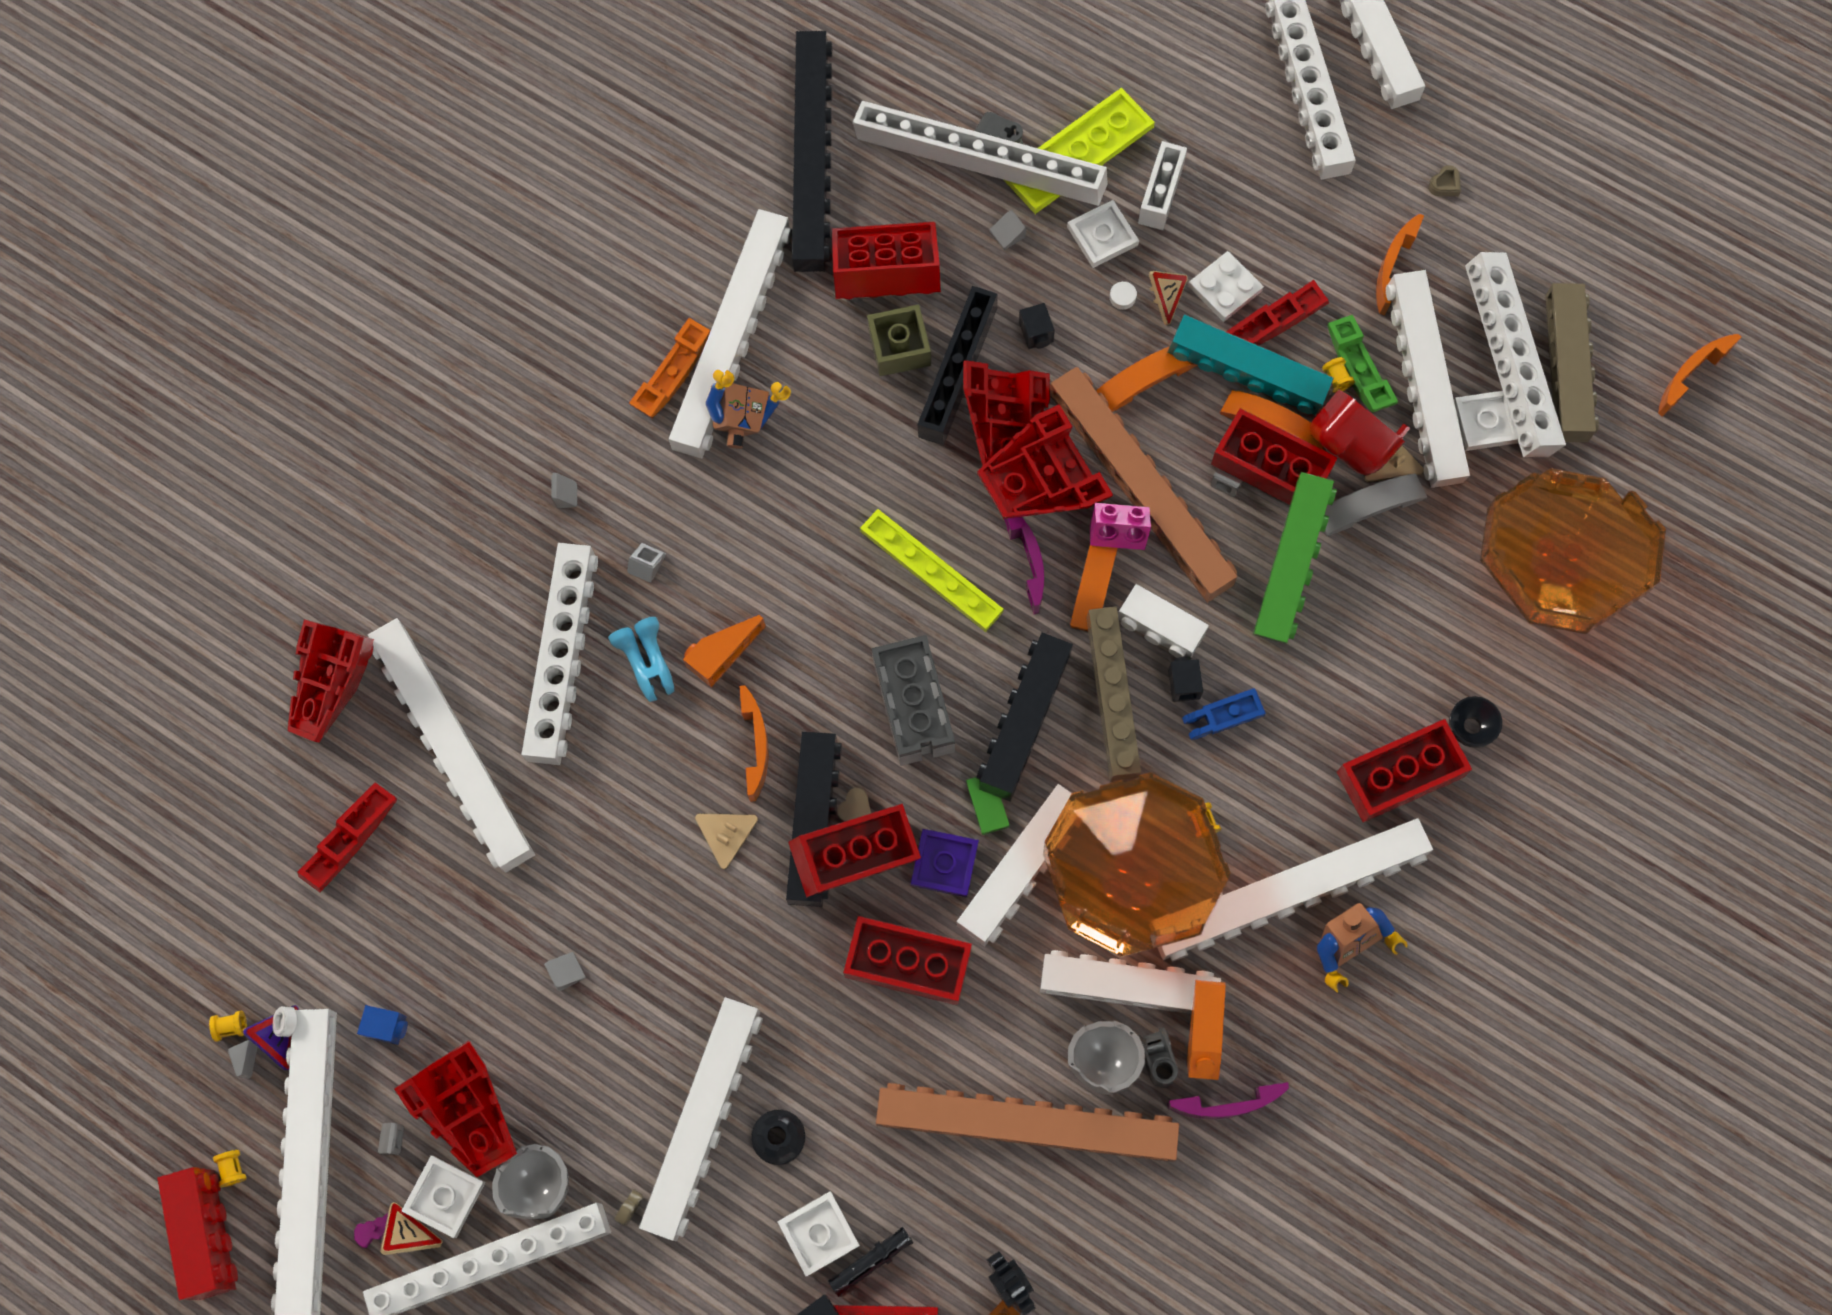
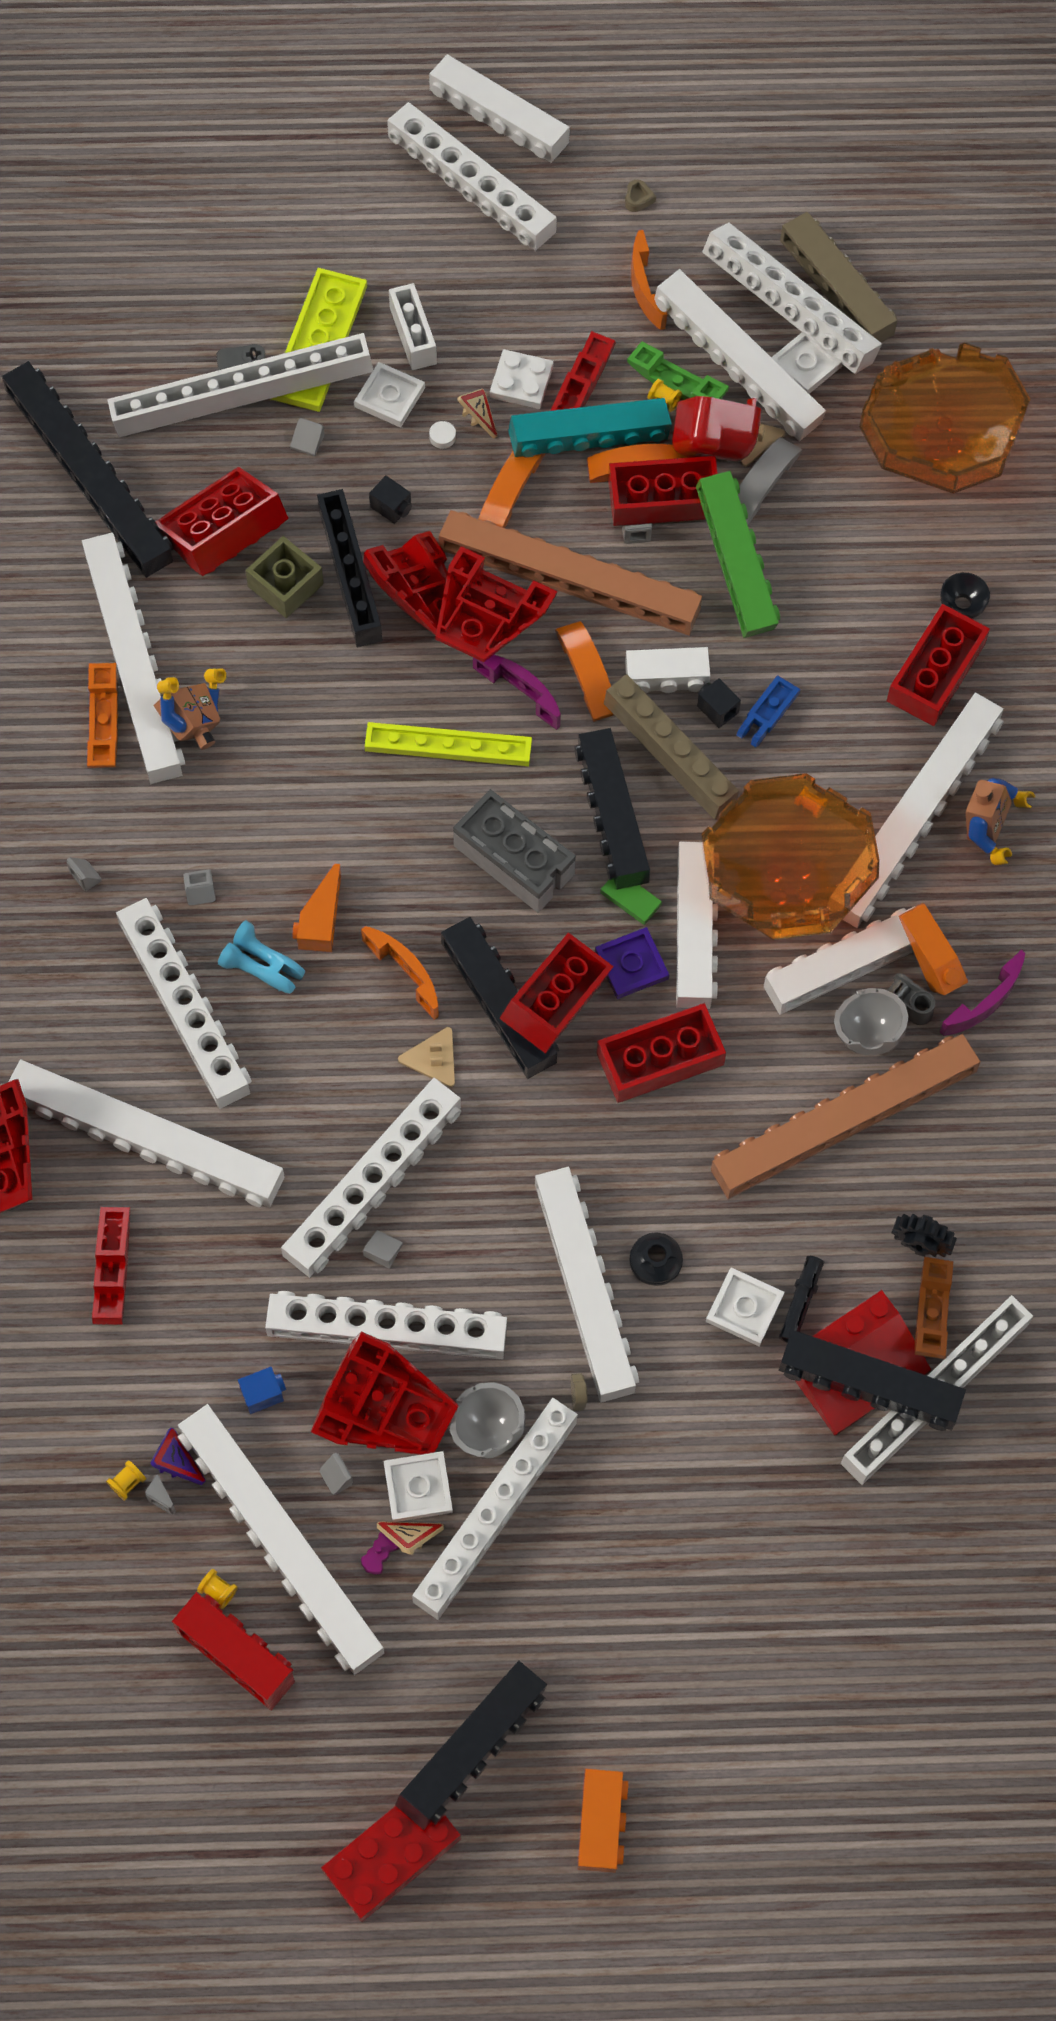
camera: 40 degrees left, 5 degrees down
(284, 1021) = (177, 1438): white tile -> none
(439, 977) = (429, 1339): none -> white brick
(497, 924) = (434, 1098): none -> white brick
(854, 806) = (524, 966): dark tan tile -> none
(1119, 526) = (579, 614): dark pink brick -> none
(1712, 352) = (931, 252): orange slope -> none

